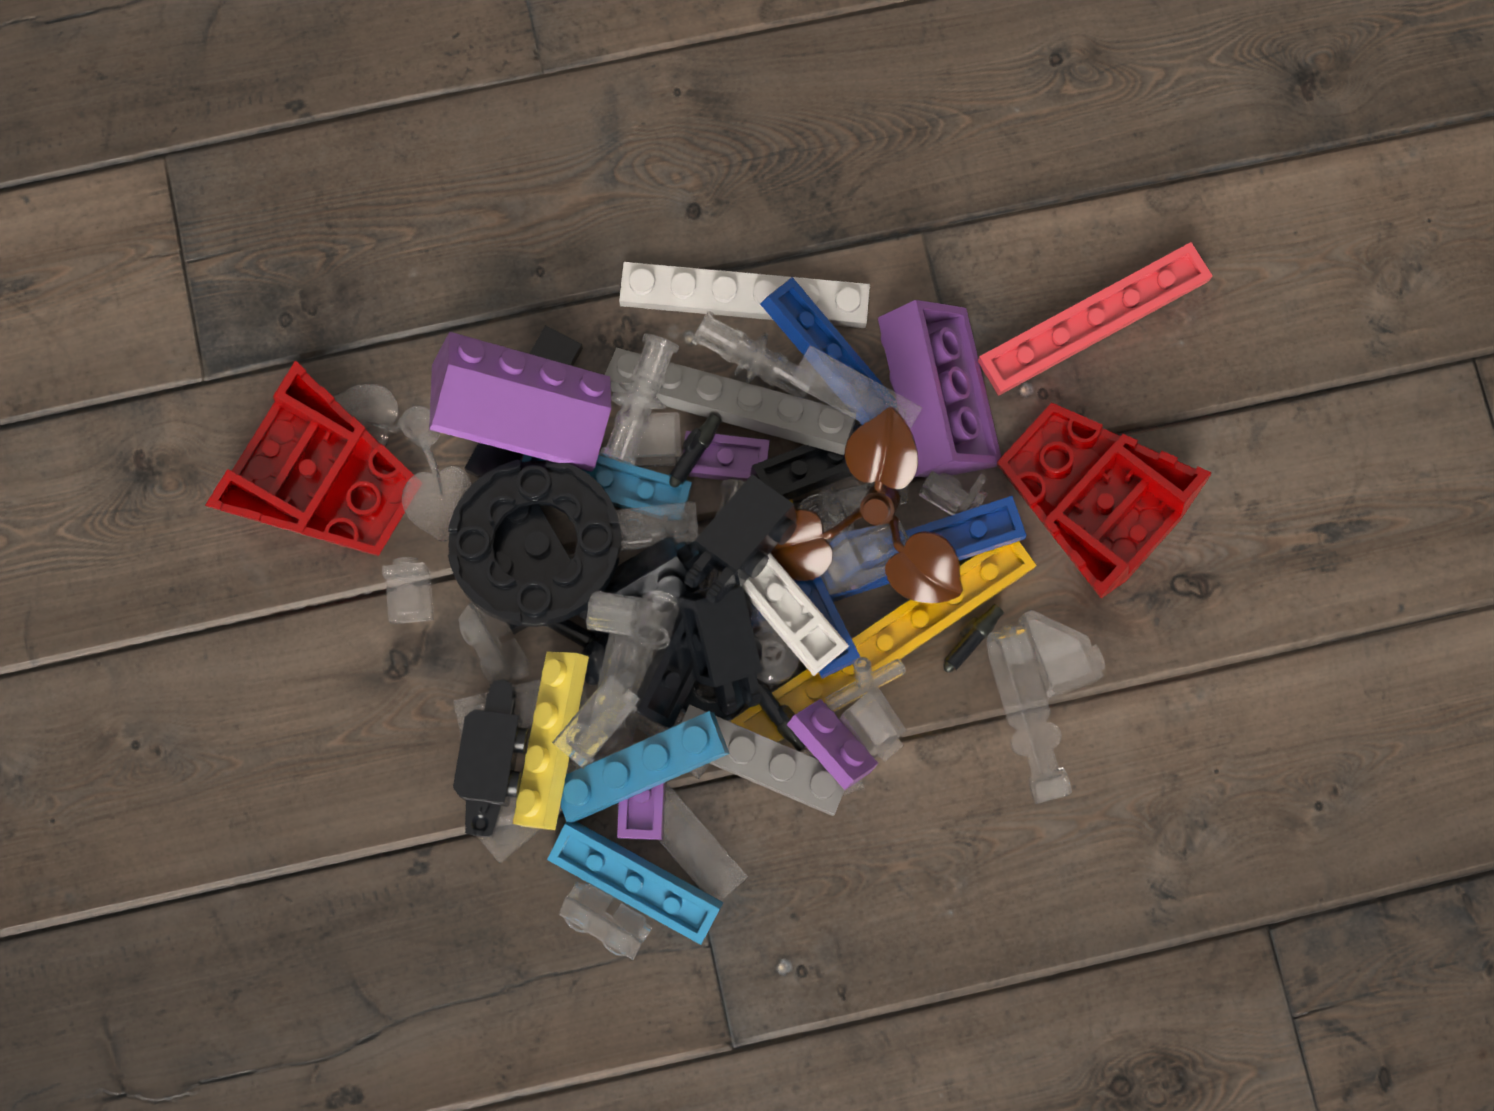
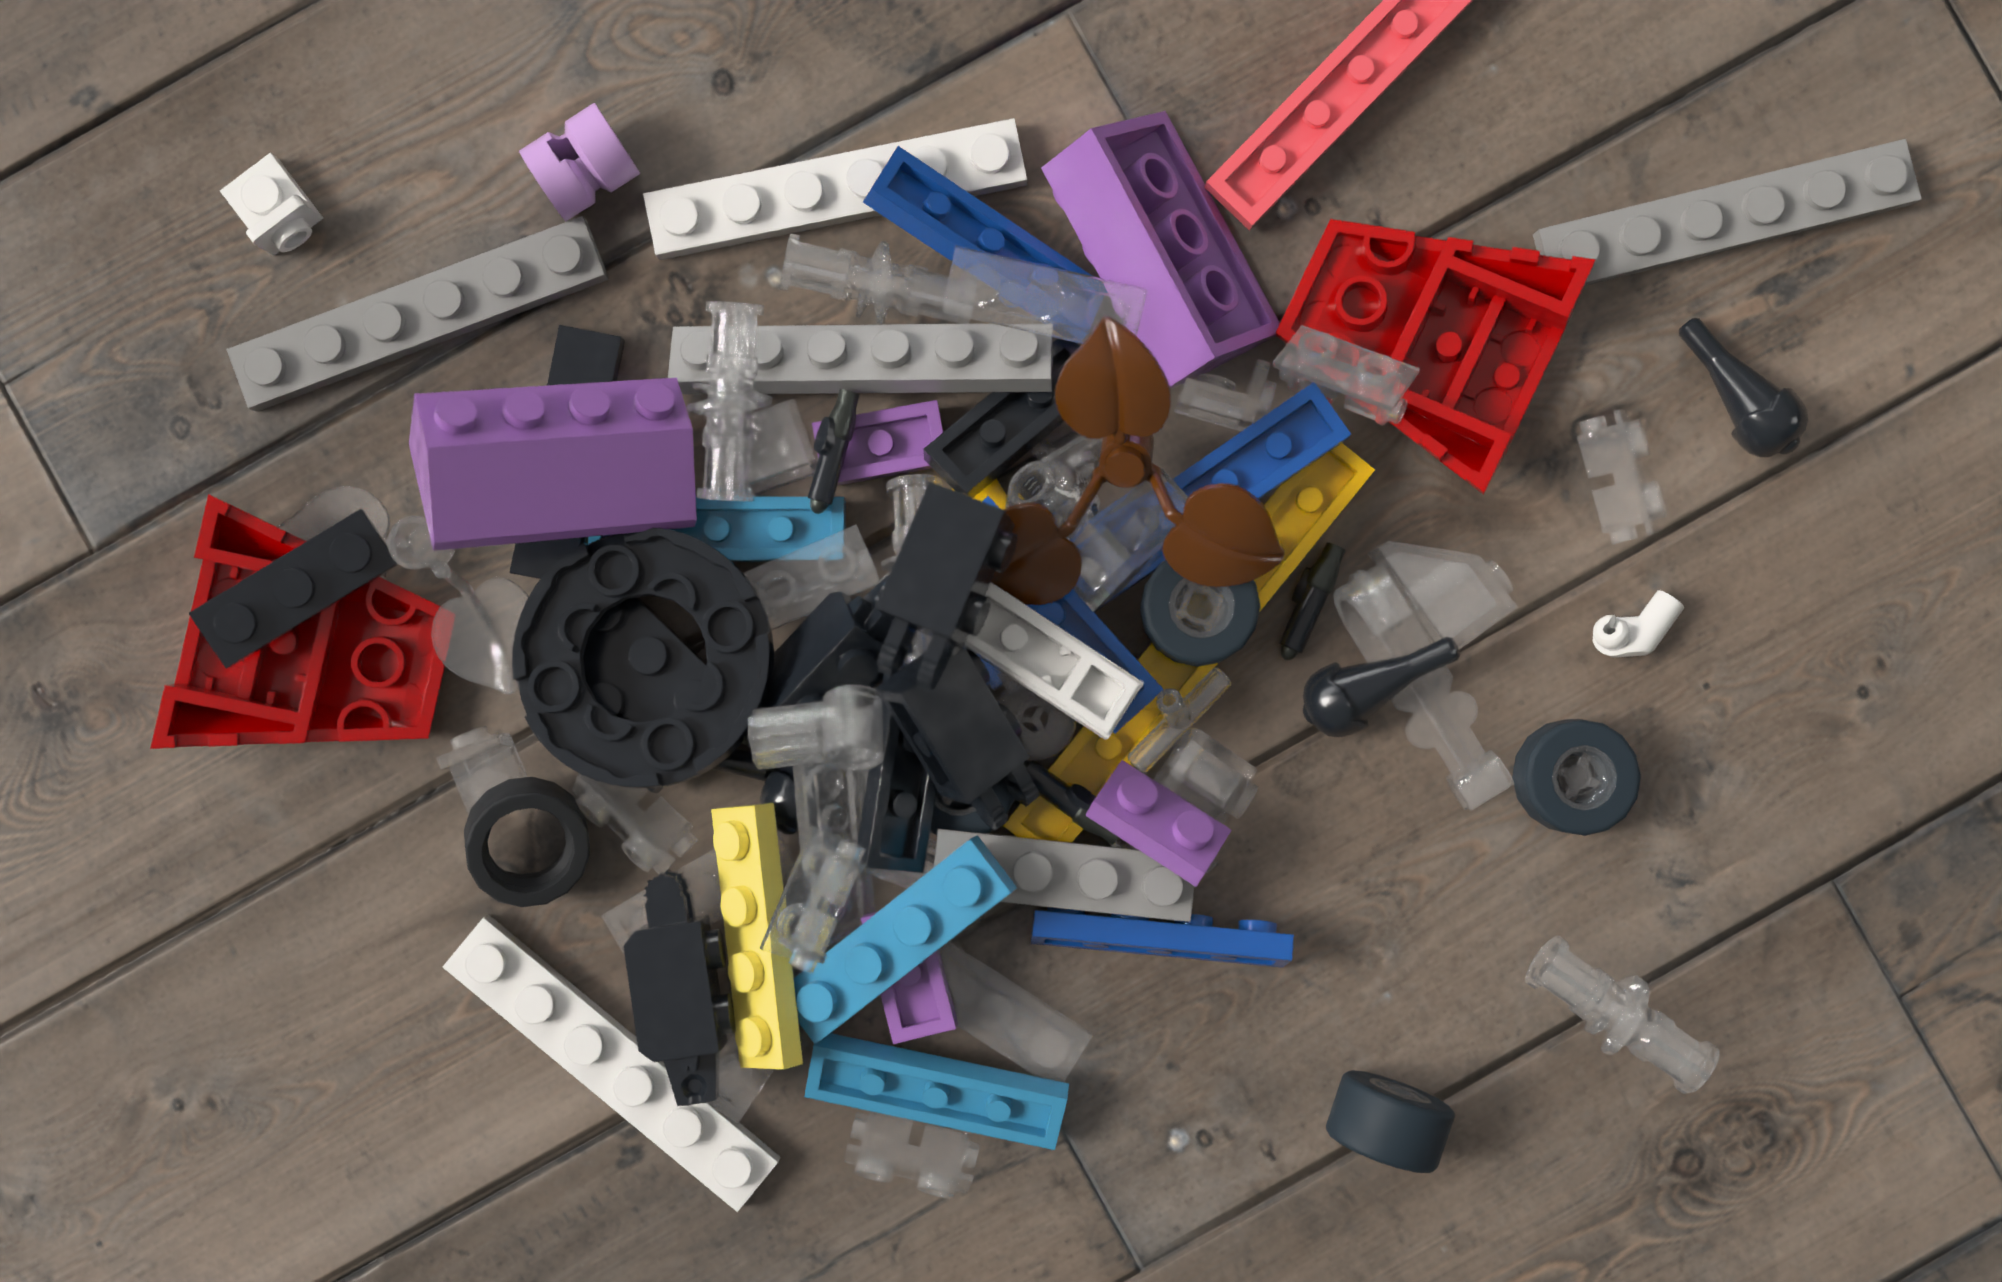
camera: 10 degrees left, 10 degrees up
(329, 433) = (293, 588): none -> black plate
(389, 202) = (272, 206): none -> white bracket
(428, 670) = (528, 888): none -> black tyre
(428, 802) = (608, 1061): none -> white plate
(458, 294) = (417, 314): none -> light grey plate
(591, 230) = (579, 162): none -> lavender wheel
(829, 831) = (1250, 944): none -> blue plate
(895, 630) = (1179, 623): none -> black wheel
(928, 990) = (1390, 1122): none -> black wheel
(977, 703) = (1345, 697): none -> black piece
(1047, 504) = (1367, 378): none -> clear hinge
(1102, 966) = (1623, 1014): none -> clear piece
(1125, 790) = (1600, 783): none -> black wheel
(1178, 722) = (1637, 634): none -> white arm
(1198, 633) = (1619, 451): none -> clear hinge
(1296, 605) = (1763, 415): none -> black piece
(1313, 475) = (1737, 213): none -> light grey plate

